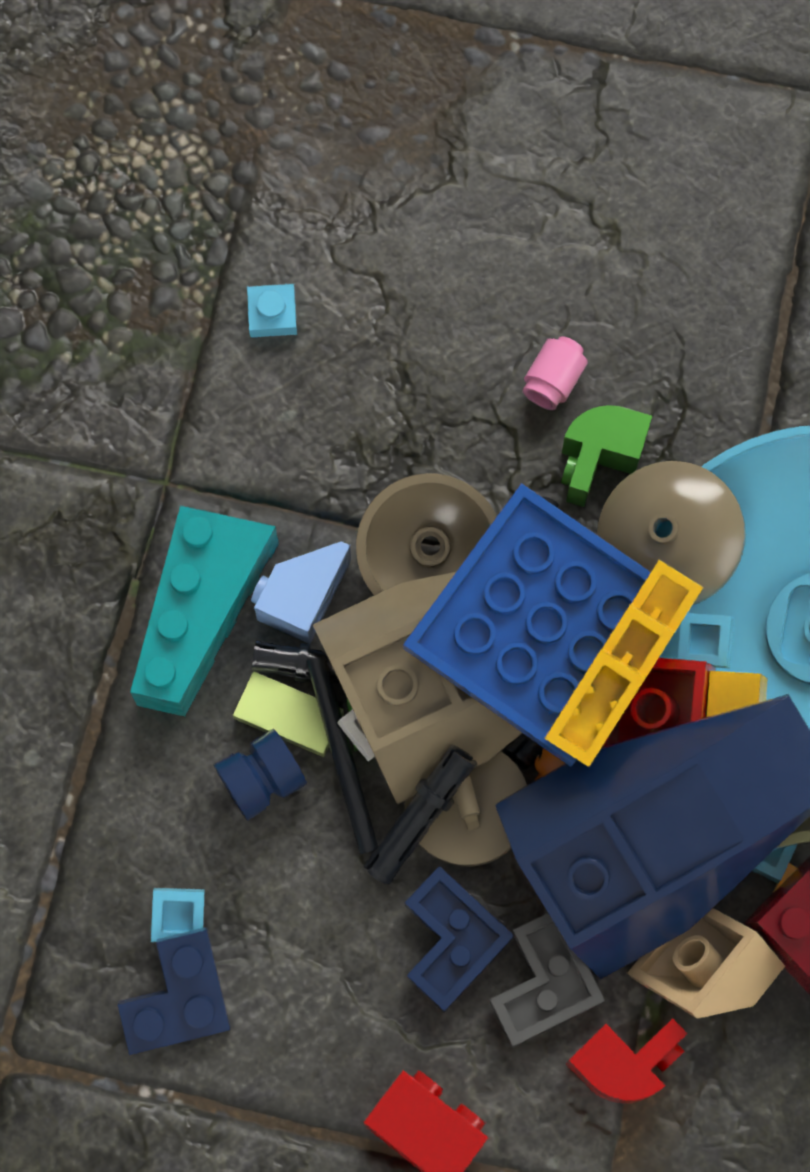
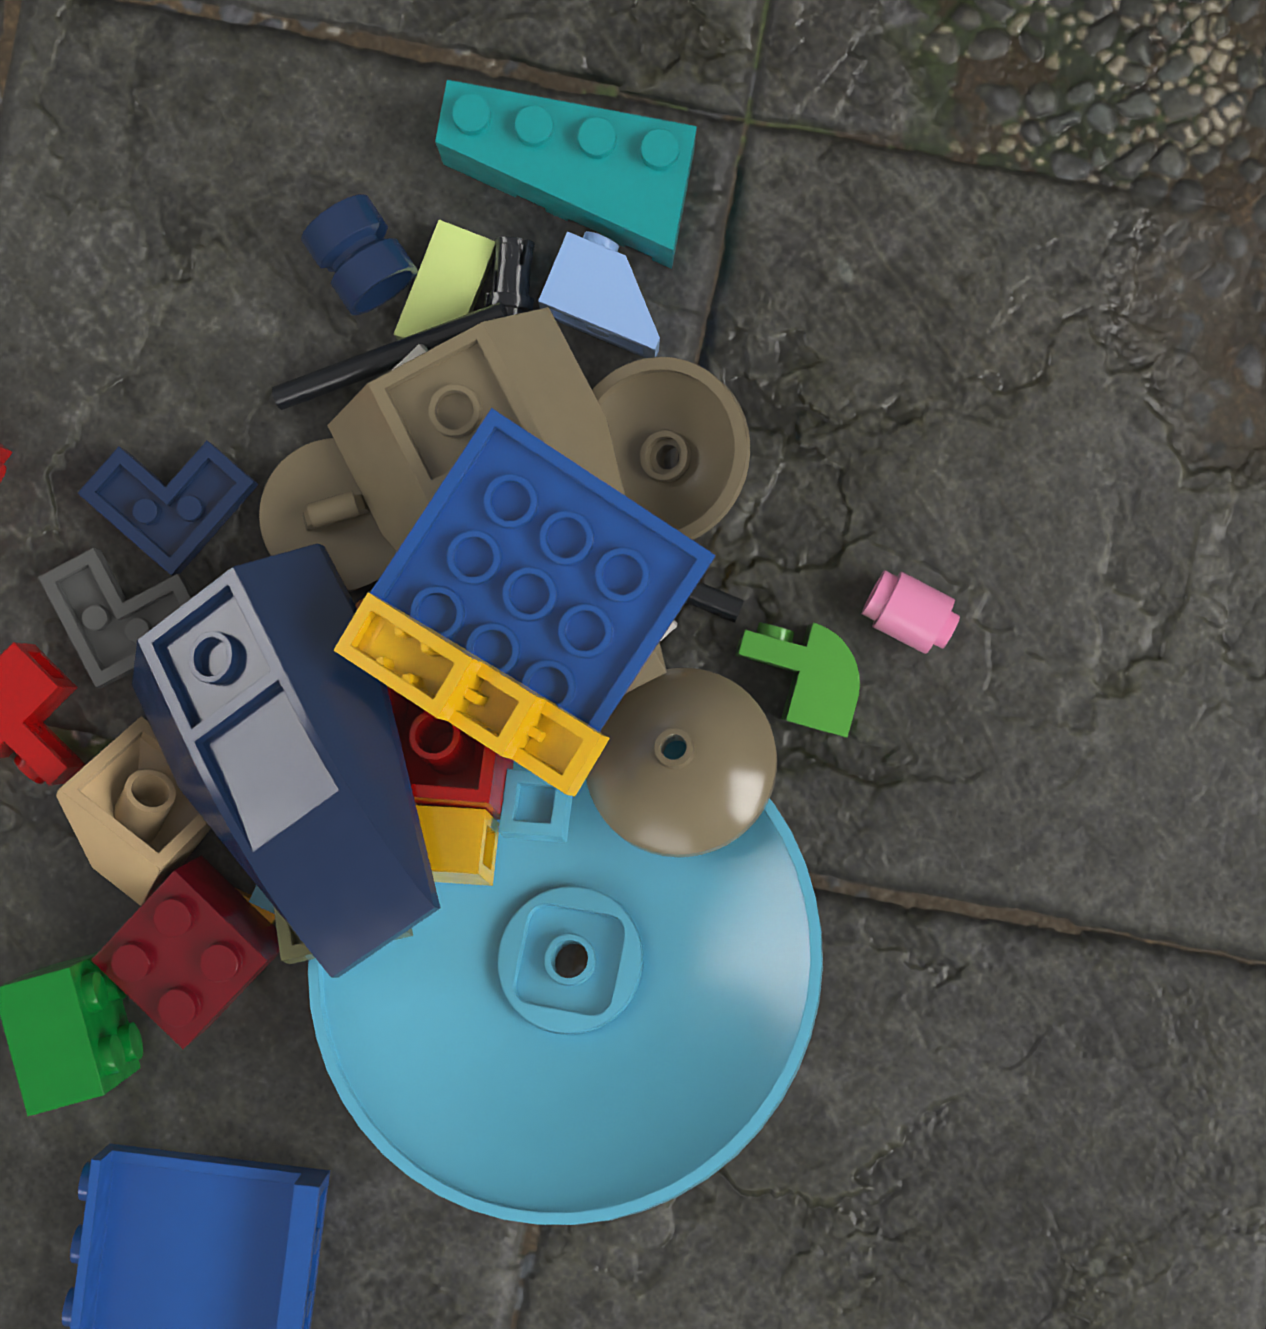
camera: 90 degrees right, 15 degrees up
(176, 911) = (185, 166): medium azure plate -> none
(188, 1007) = (87, 188): dark blue plate -> none
(272, 310) = (988, 240): medium azure plate -> none
(432, 798) = (326, 464): black pin -> none

